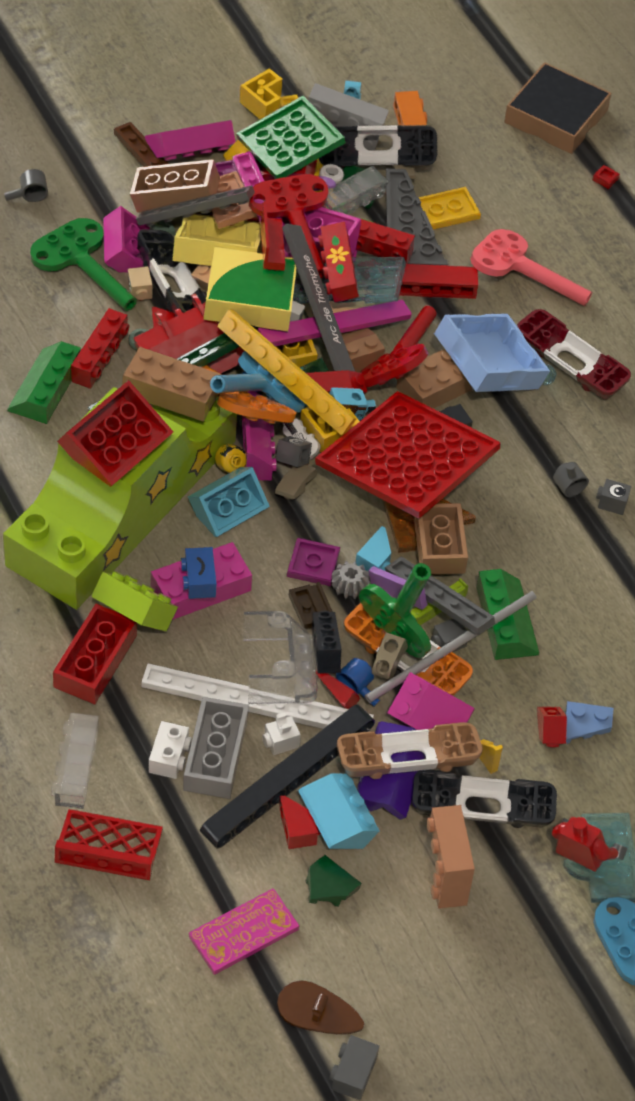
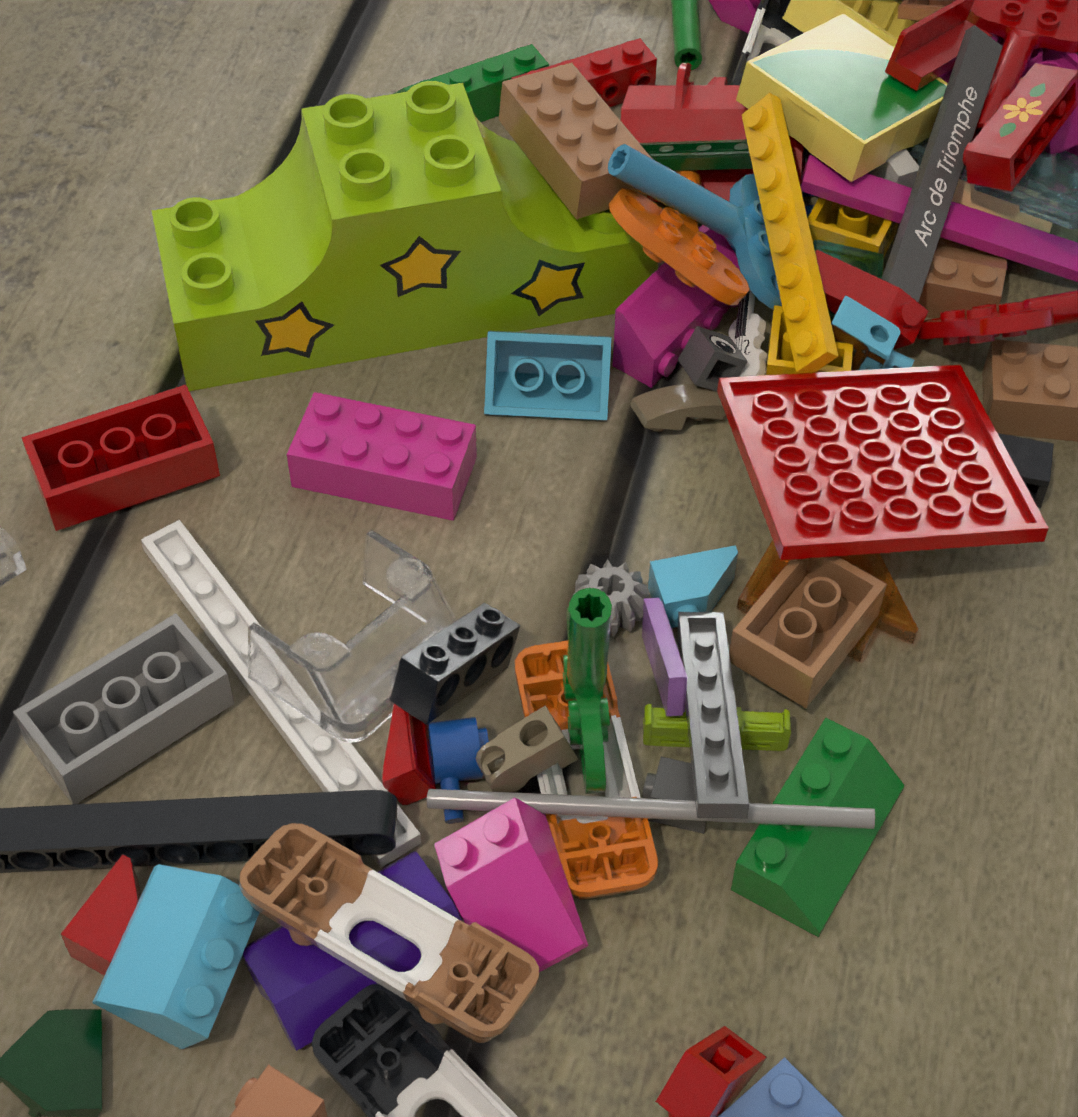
camera: 45 degrees right, 0 degrees up
(116, 435) = (364, 123): red slope -> none
(135, 600) = (238, 416): lime brick -> none
(140, 283) = (725, 40): tan brick -> none
(169, 750) = (59, 654): white brick -> none
(200, 572) = (362, 430): blue brick -> none
(230, 457) = (598, 306): yellow head -> none
(281, 734) = (246, 760): white brick -> none
(308, 600) = (515, 589): dark brown plate -> none
(313, 561) = (586, 534): magenta tile -> none
(490, 755) = (542, 1041): yellow tile -> none

